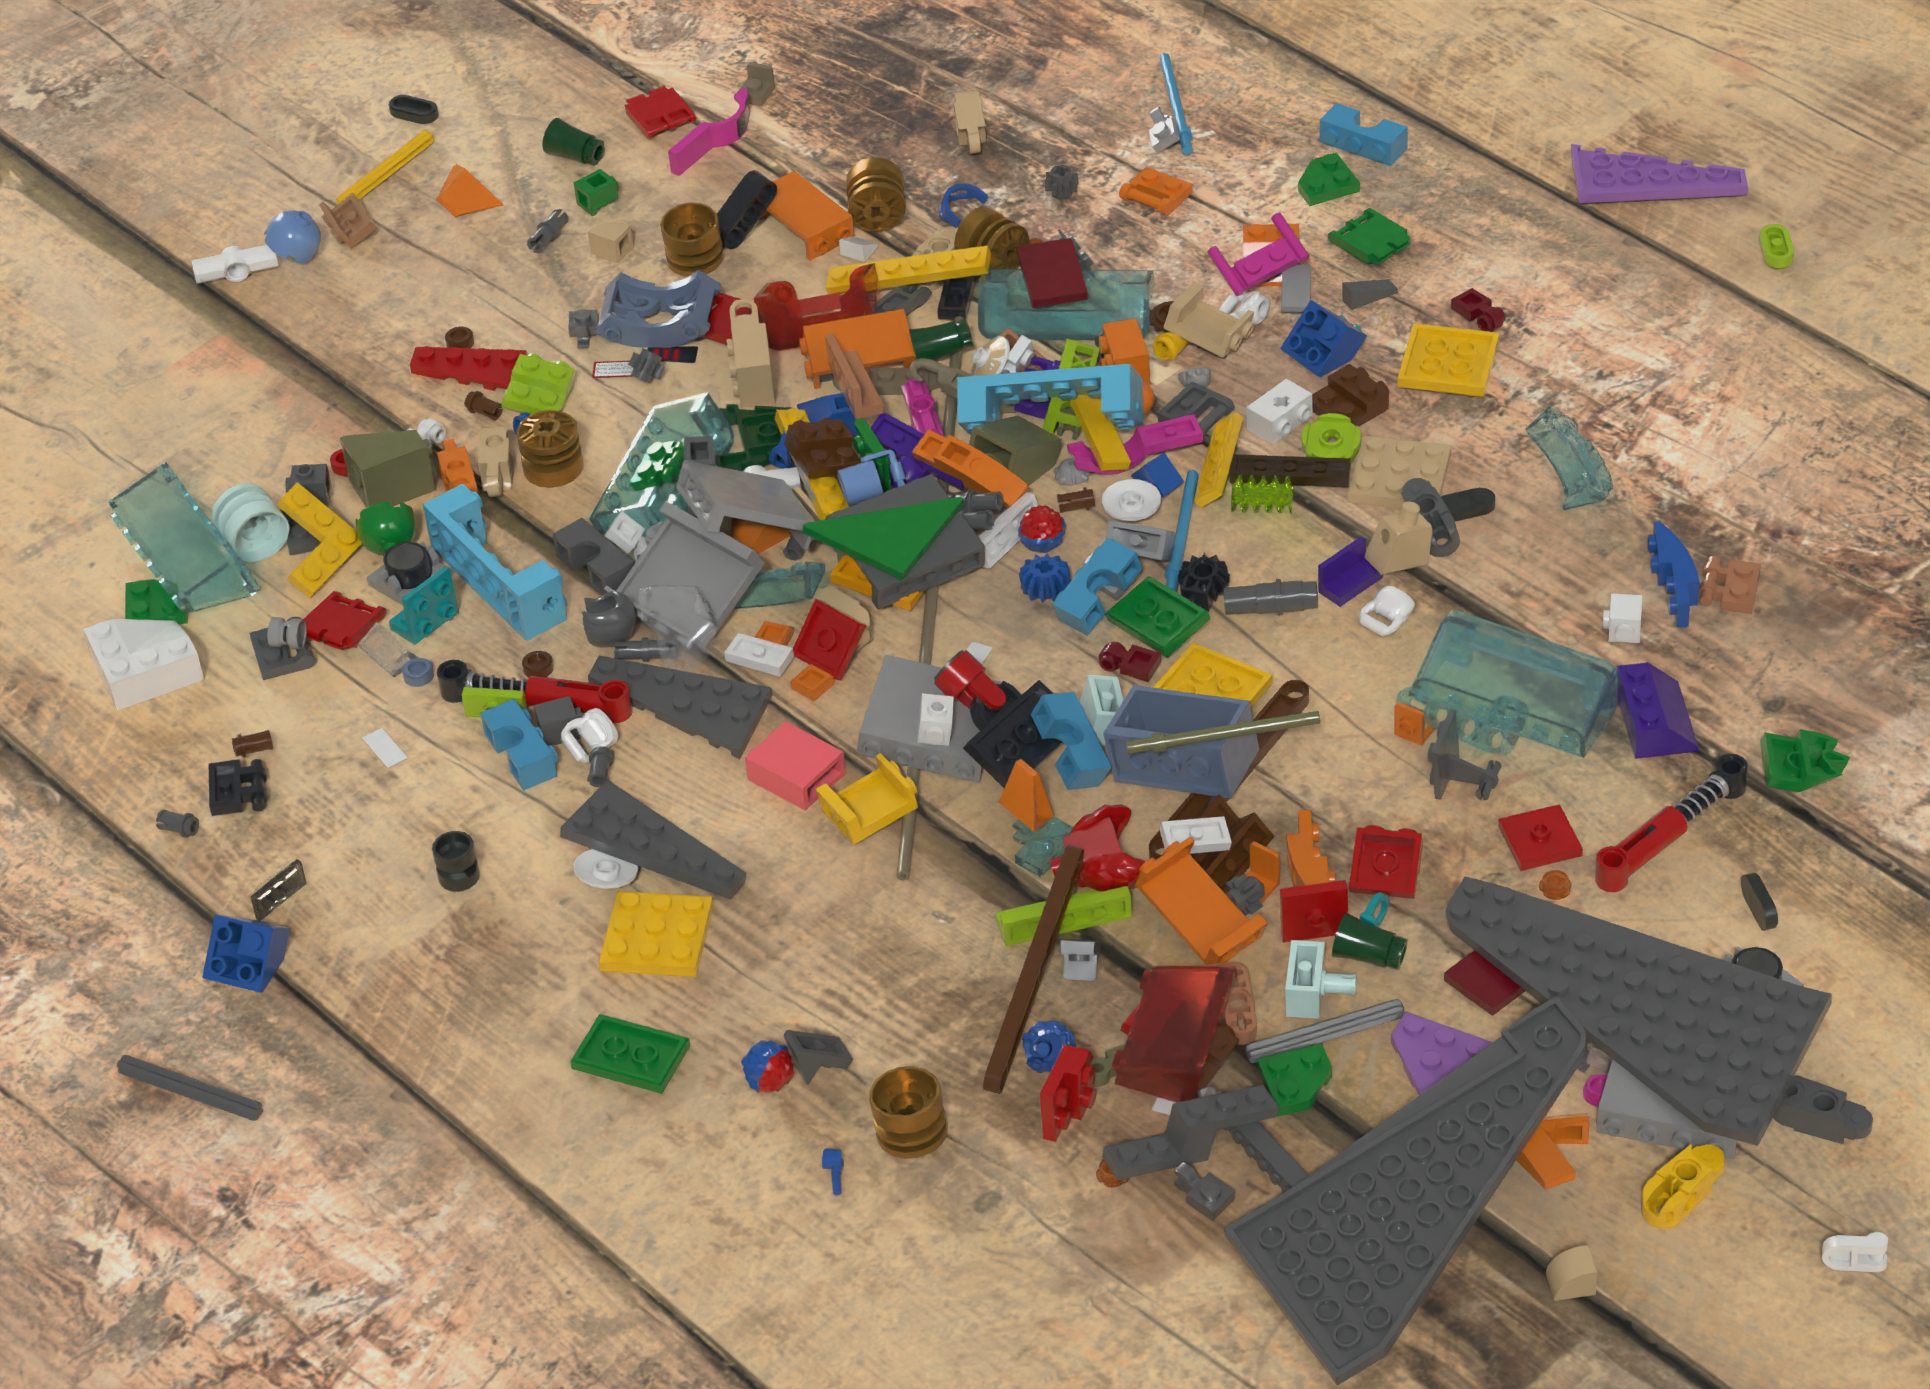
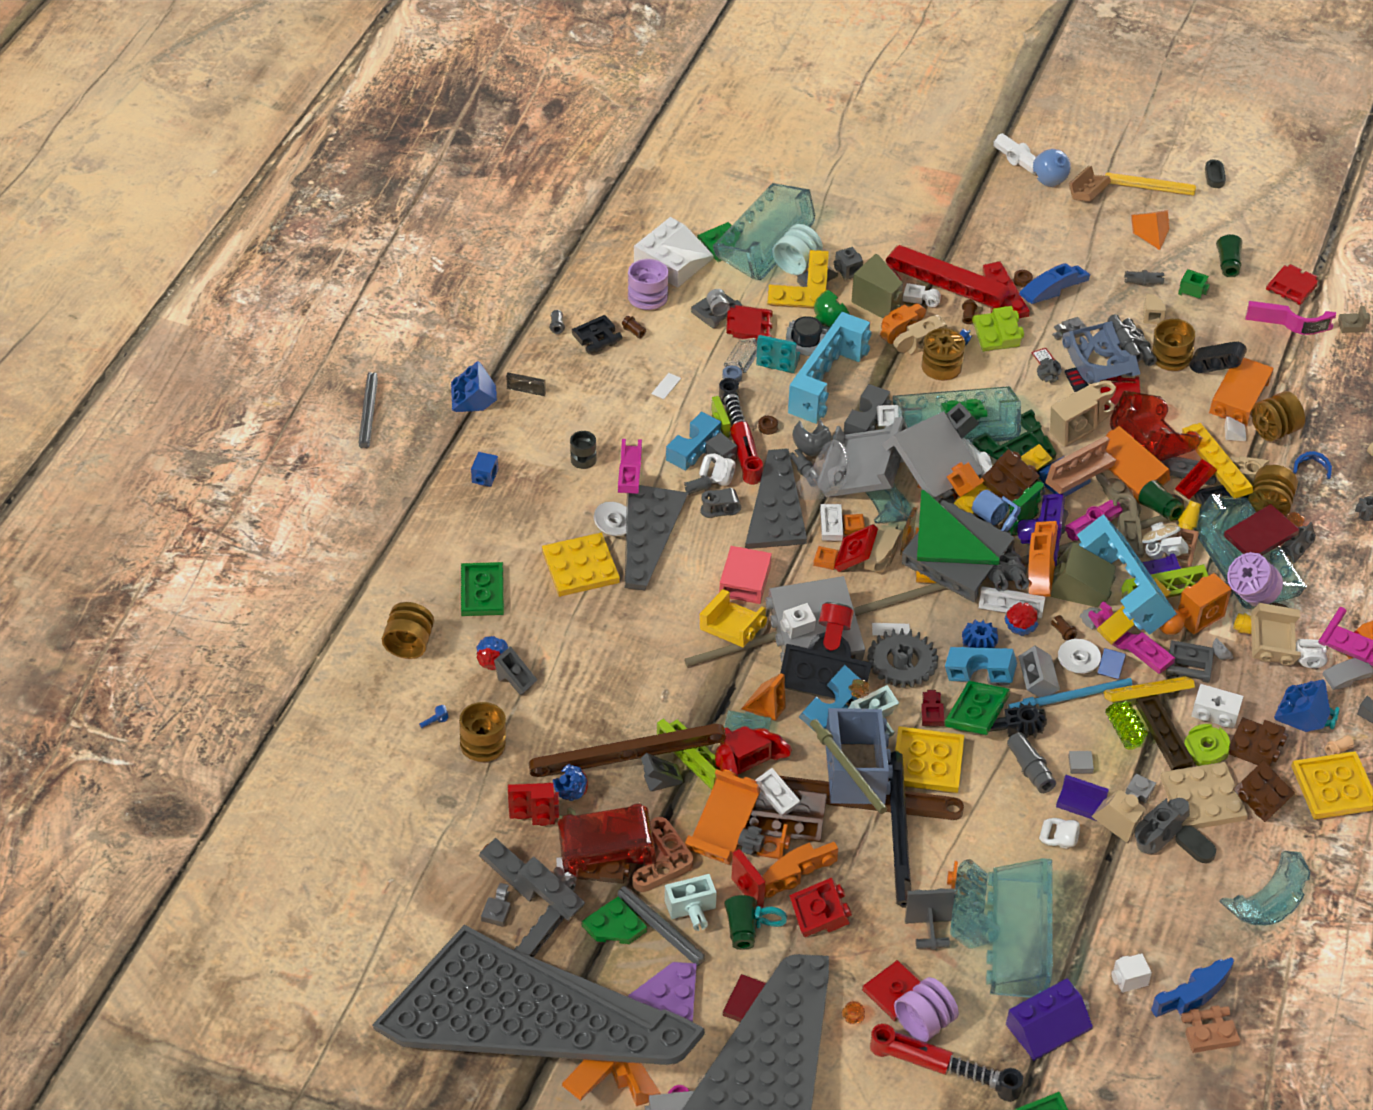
camera: 60 degrees right, 5 degrees up
(193, 695) = (648, 284): none -> lavender wheel
(411, 982) = (484, 469): none -> blue brick
(413, 397) = (948, 276): none -> red beam
(500, 310) = (1052, 281): none -> blue slope
(543, 819) = (630, 468): none -> dark pink piece
(651, 753) = (721, 502): none -> dark grey piece
(652, 271) = (1133, 339): none -> dark grey pin
(672, 1144) = (408, 630): none -> pearl gold wheel
(802, 486) = (964, 478): none -> orange brick
(836, 573) = (908, 529): none -> clear orange piece
(936, 306) = (1195, 479): none -> red tile
(980, 325) = (1190, 516): none -> yellow cone
(1062, 658) = (902, 648): none -> dark grey gear
(1086, 695) = (859, 688): none -> clear orange plate
(1120, 300) = (1262, 586): none -> lavender wheel
(1289, 558) = (1080, 762): none -> light grey tile
(1338, 758) = (899, 829): none -> black piece
(1358, 522) = (1140, 787): none -> light grey plate
(1395, 339) = (1339, 745): none -> light nougat pin
(1428, 417) = (1263, 791): none -> reddish brown plate
(1597, 806) = (926, 1009): none -> lavender wheel

